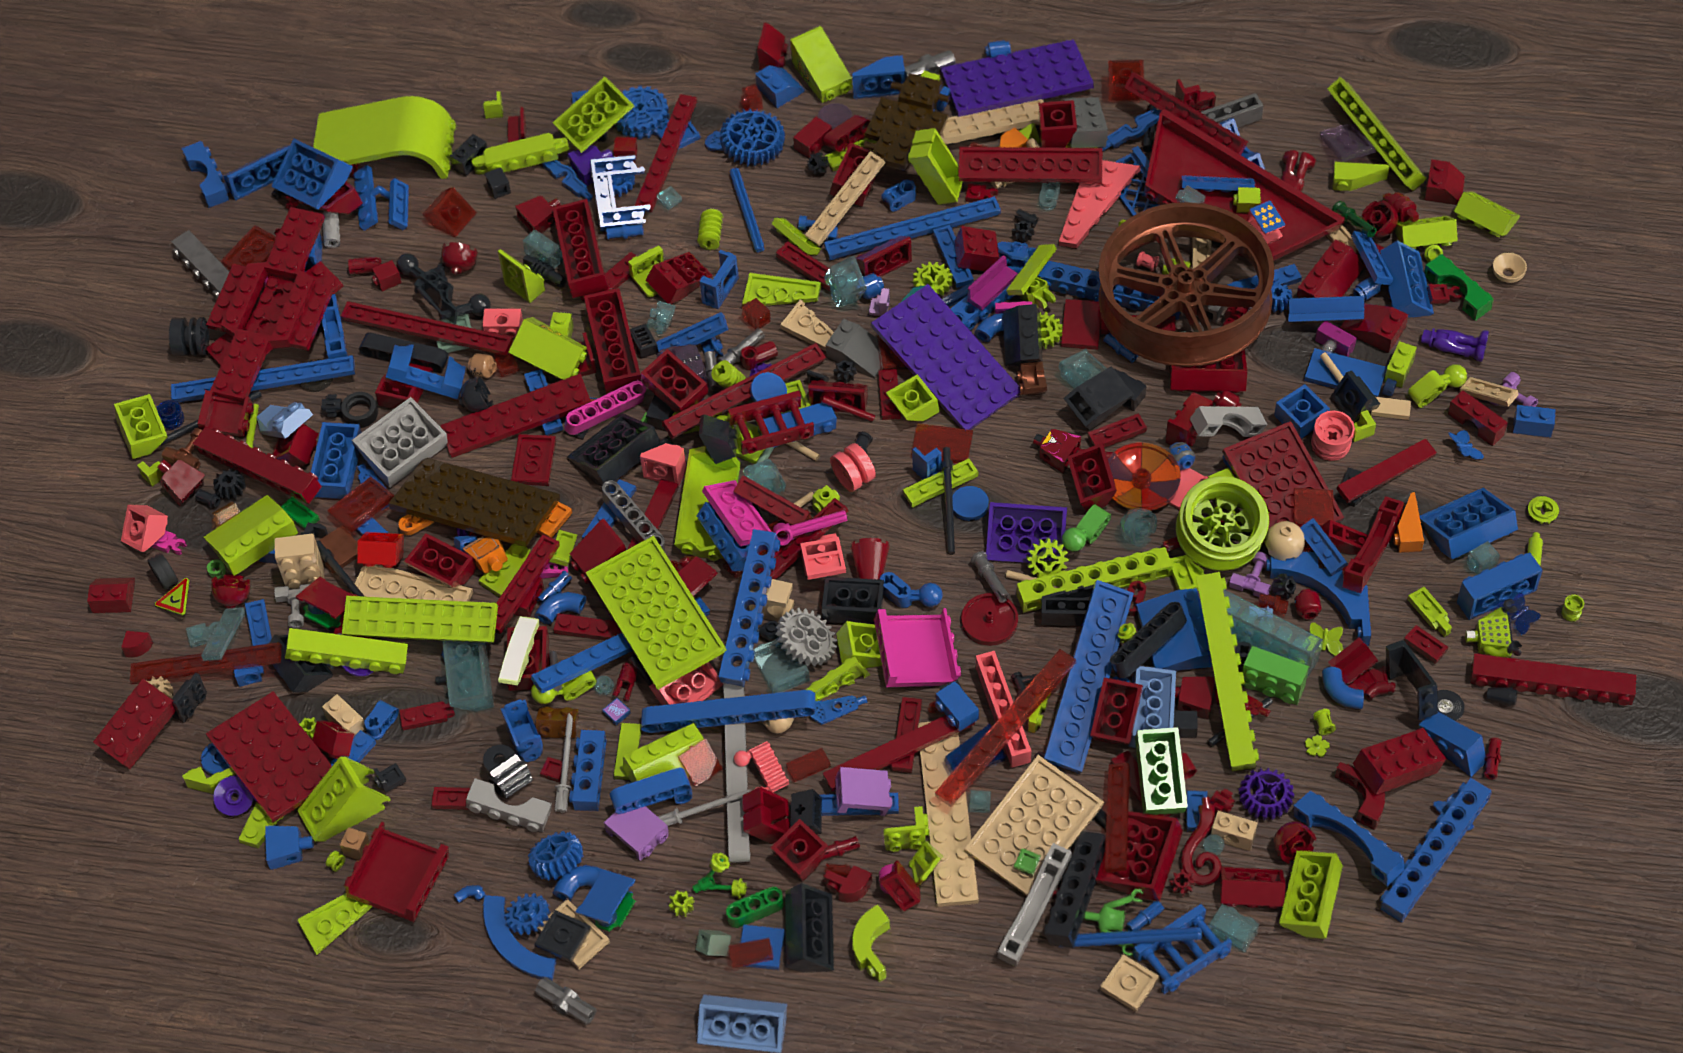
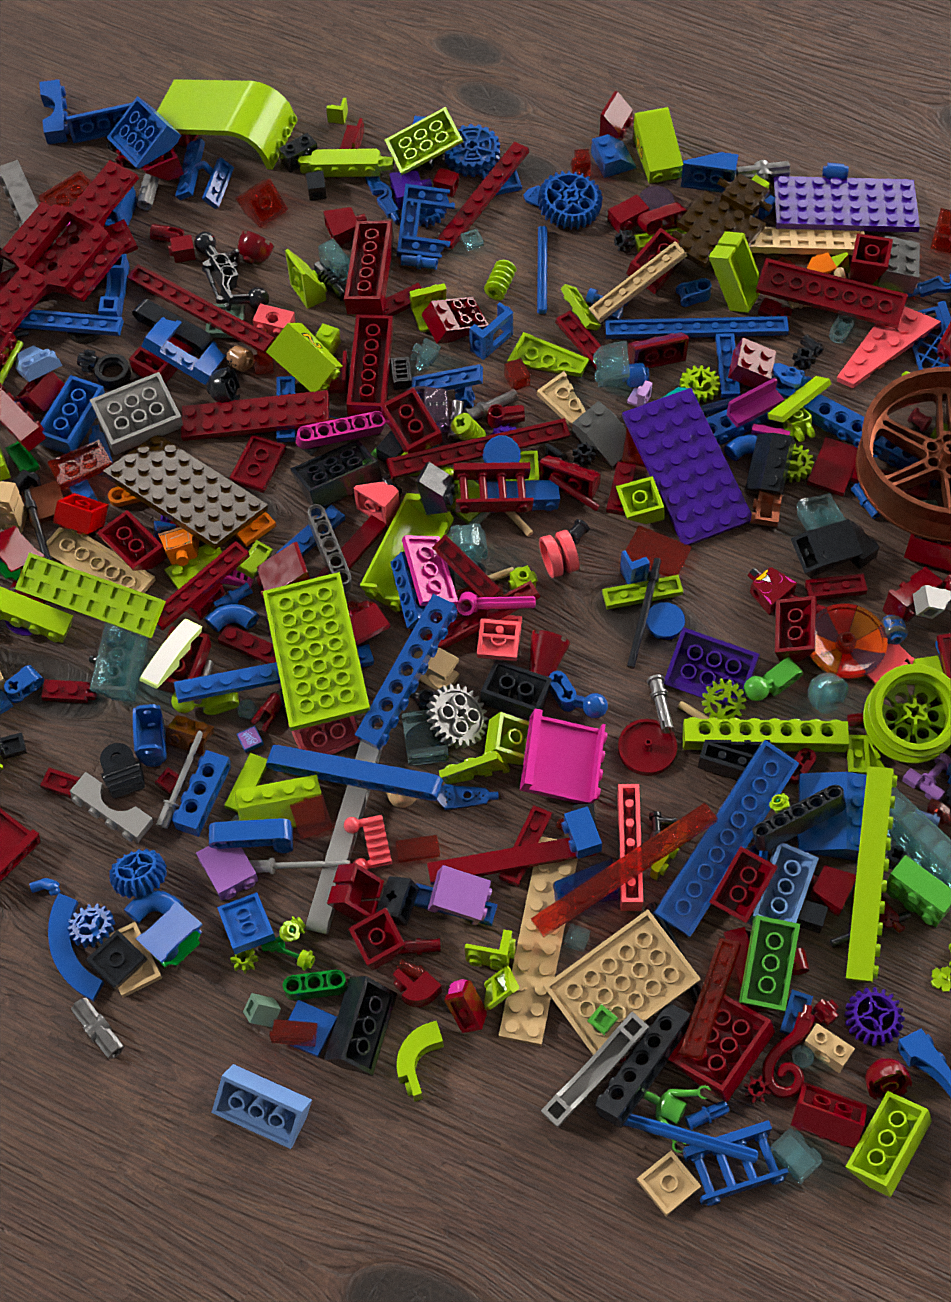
camera: 15 degrees right, 5 degrees up
(673, 870) = (246, 923): none -> blue plate

